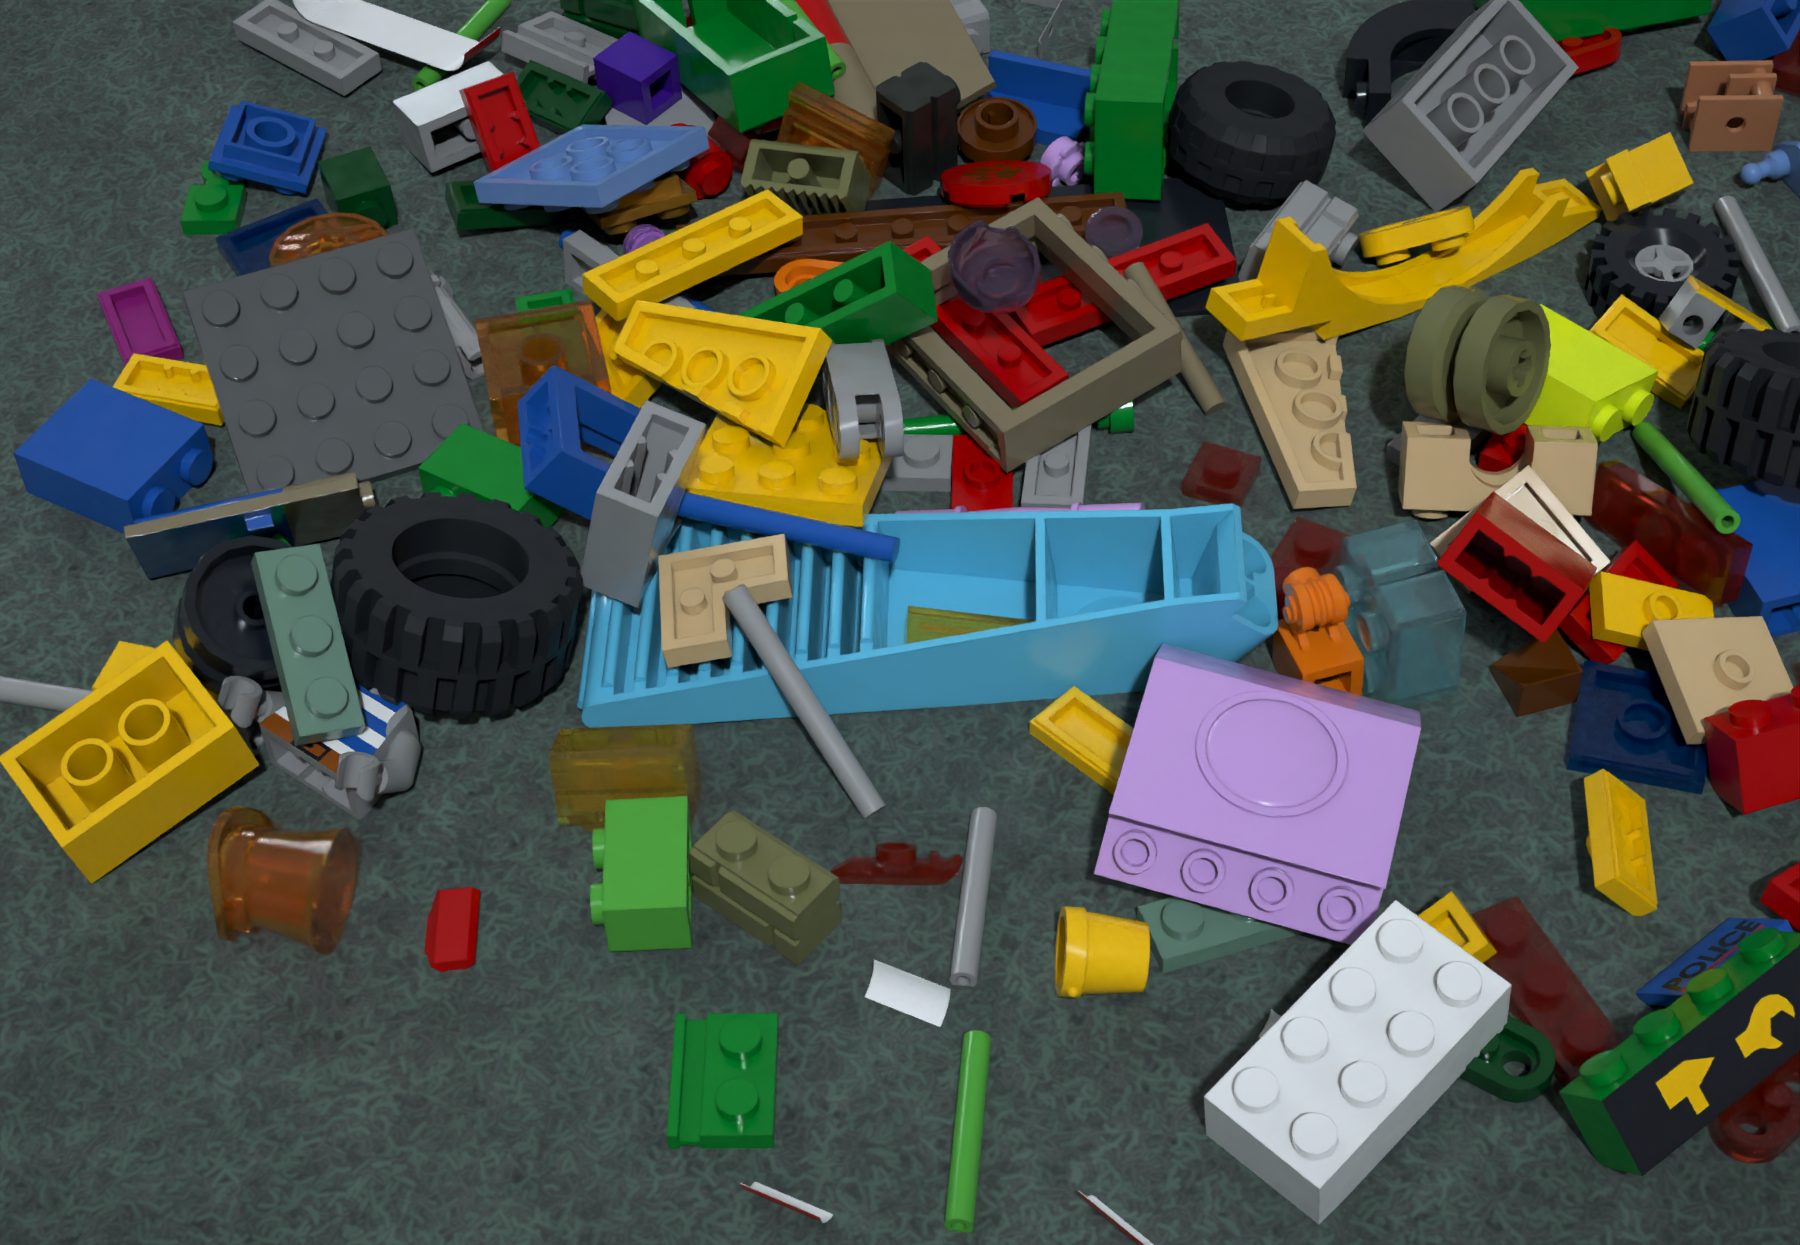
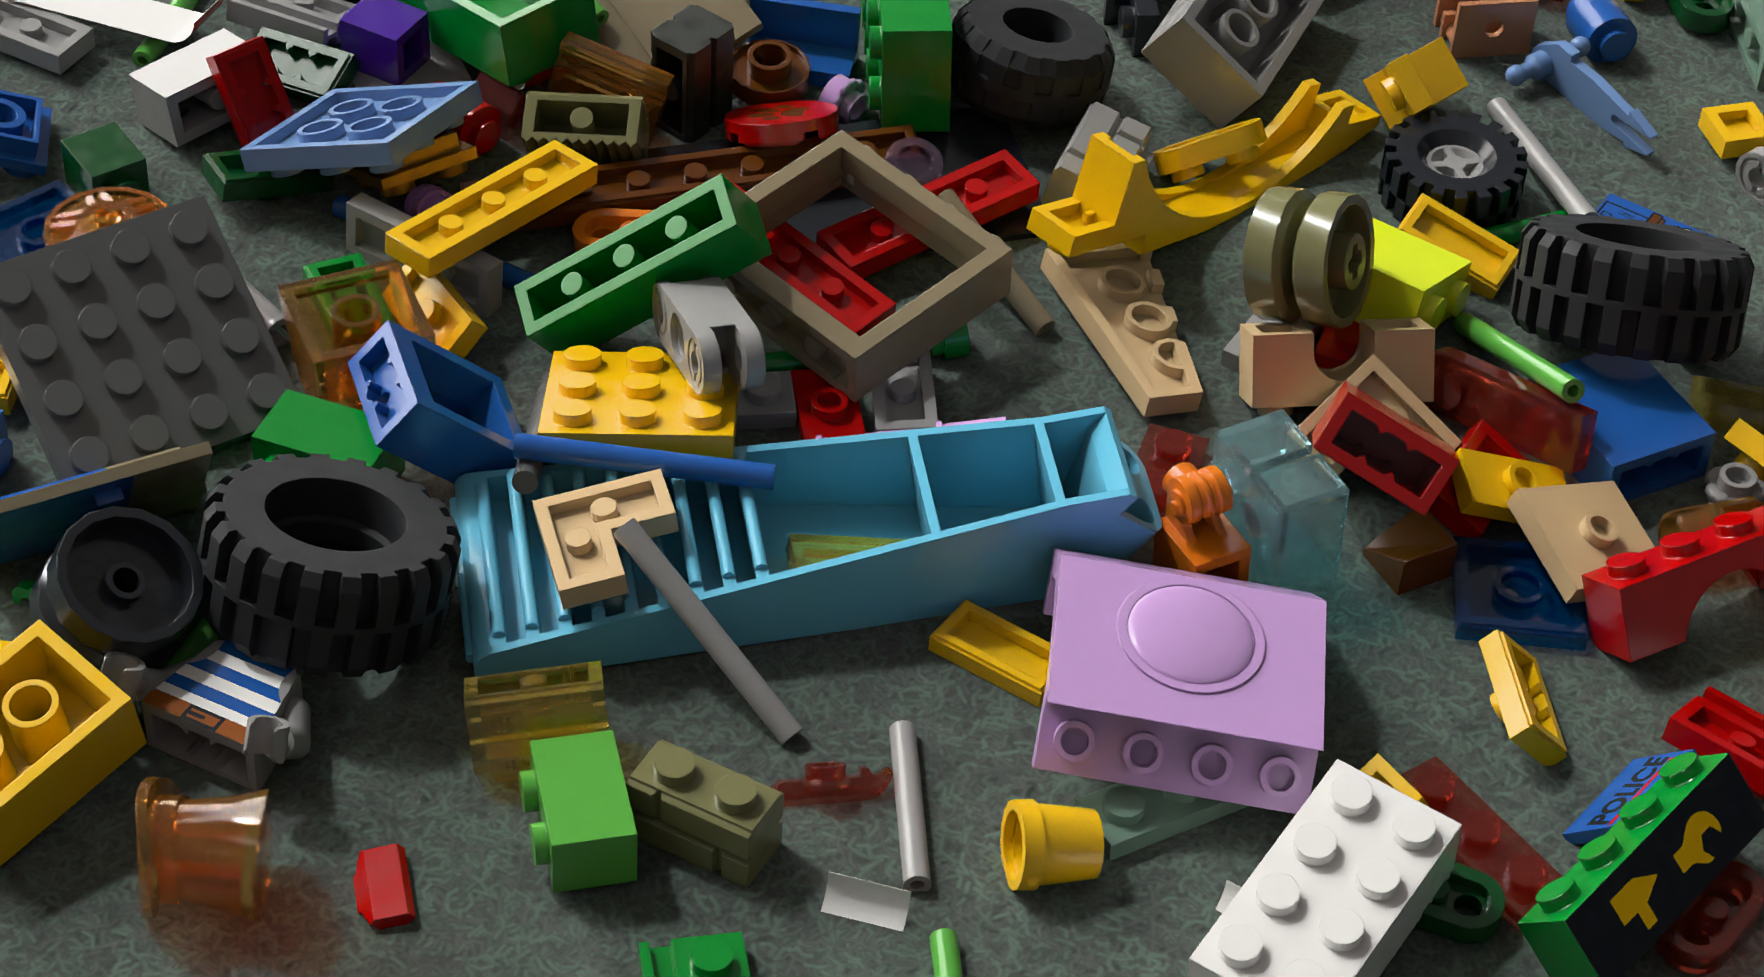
camera: 15 degrees left, 5 degrees down
(307, 644) = (189, 612): sand green plate -> none
(640, 503) = (514, 448): light grey slope -> none
(728, 362) = (562, 309): yellow wing -> none
(993, 268) = (817, 199): clear purple hair -> none
(1221, 475) = (1064, 388): clear red plate -> none
(1706, 307) = (1505, 201): flat silver piece -> none

